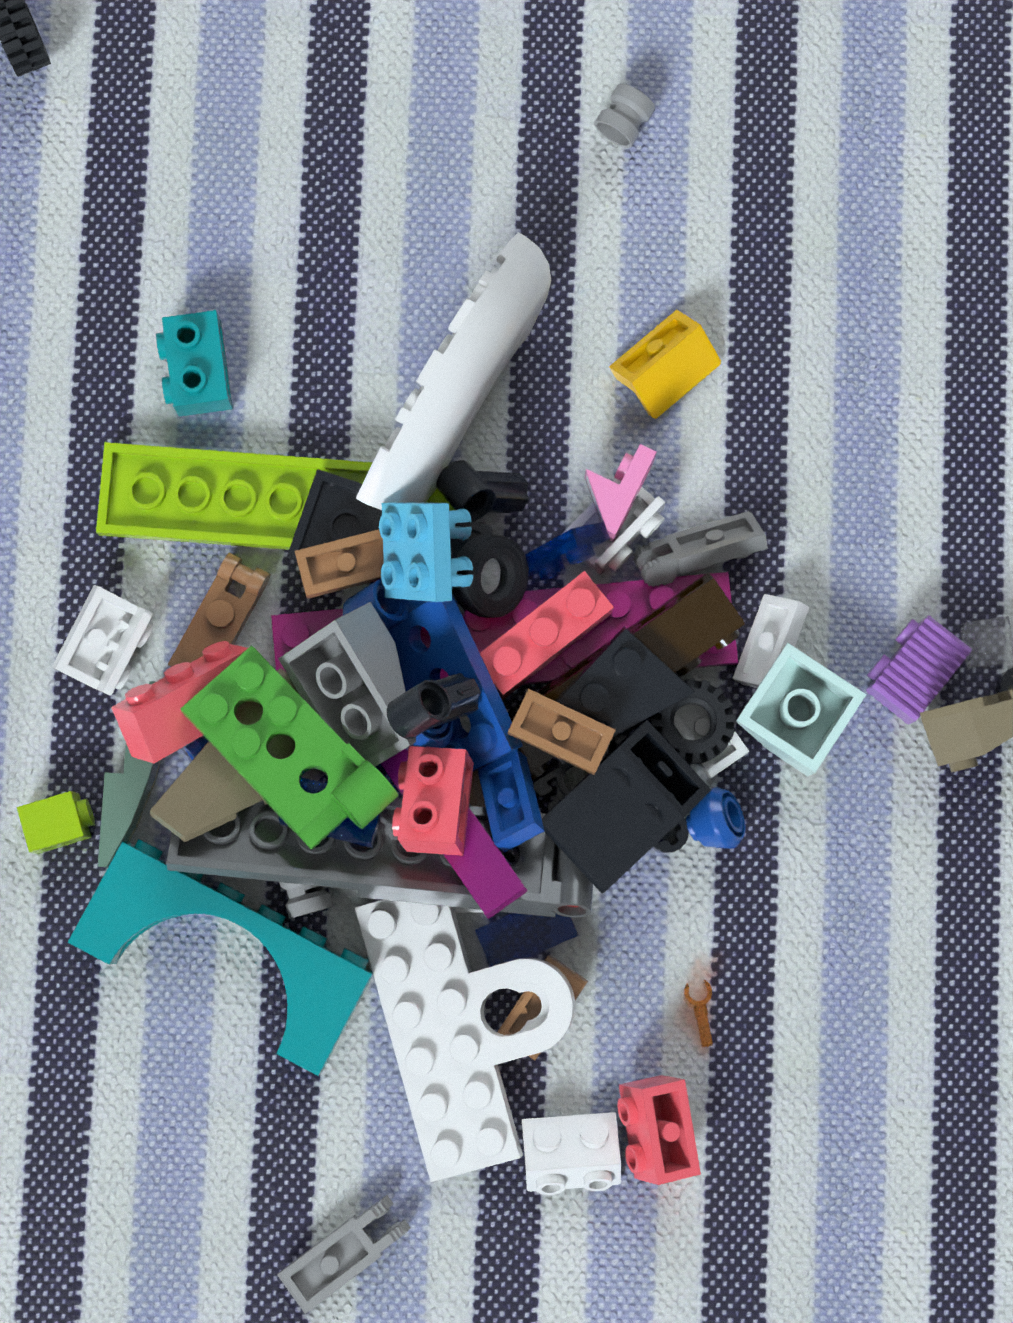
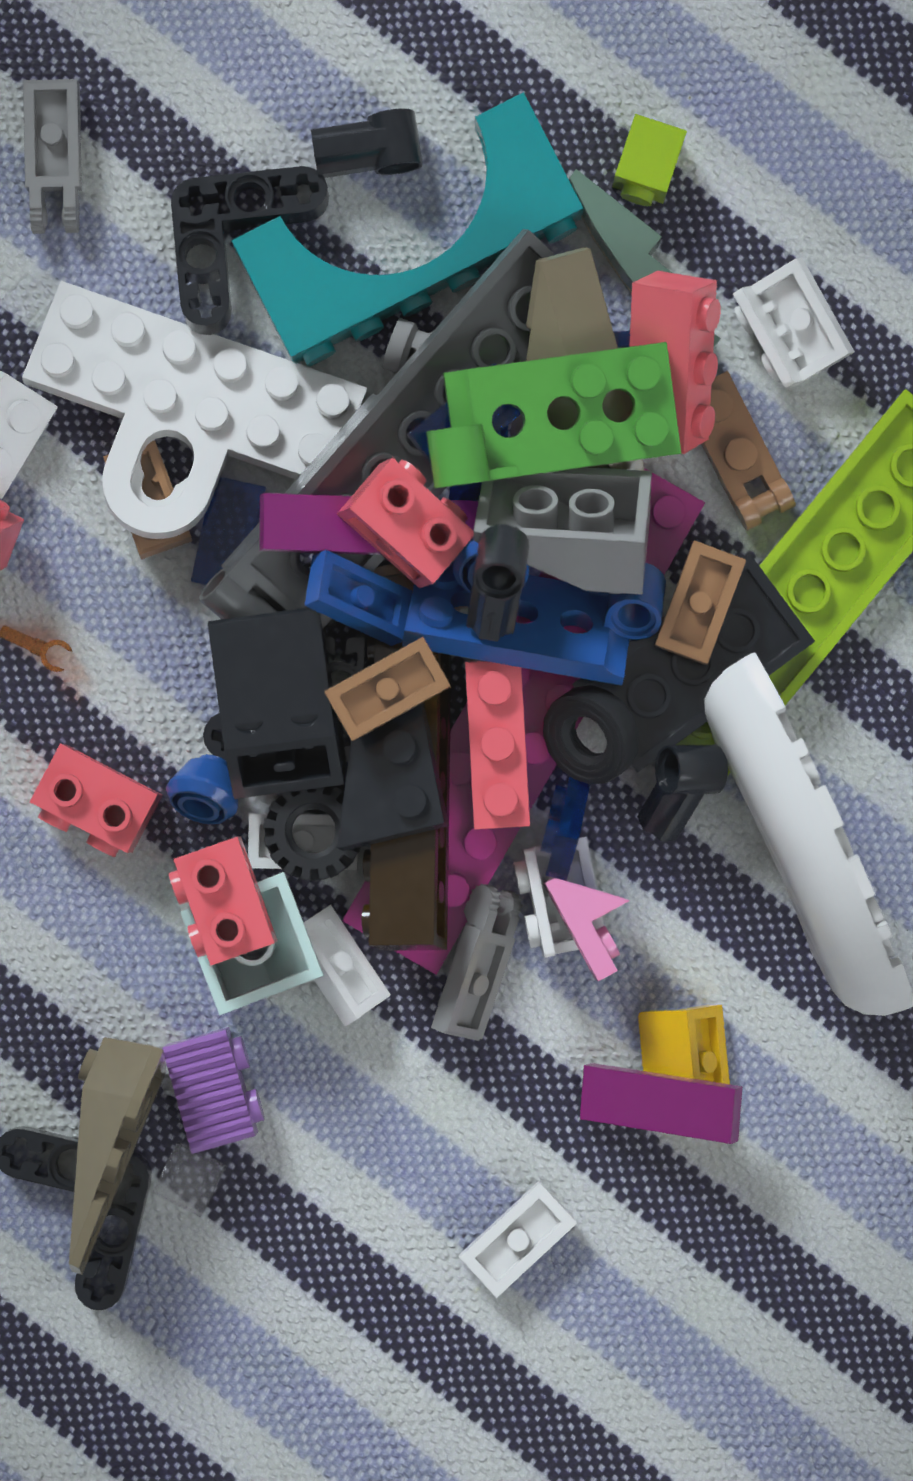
camera: 130 degrees right, 5 degrees up
(174, 1021) = (382, 143): none -> black piece
(315, 1101) = (211, 224): none -> black beam
(419, 550) = (659, 673): medium azure plate -> none
(706, 357) = (661, 1103): none -> magenta tile
(779, 891) = (95, 800): none -> coral brick
(788, 744) = (223, 901): none -> coral brick
(865, 392) = (517, 1239): none -> white plate

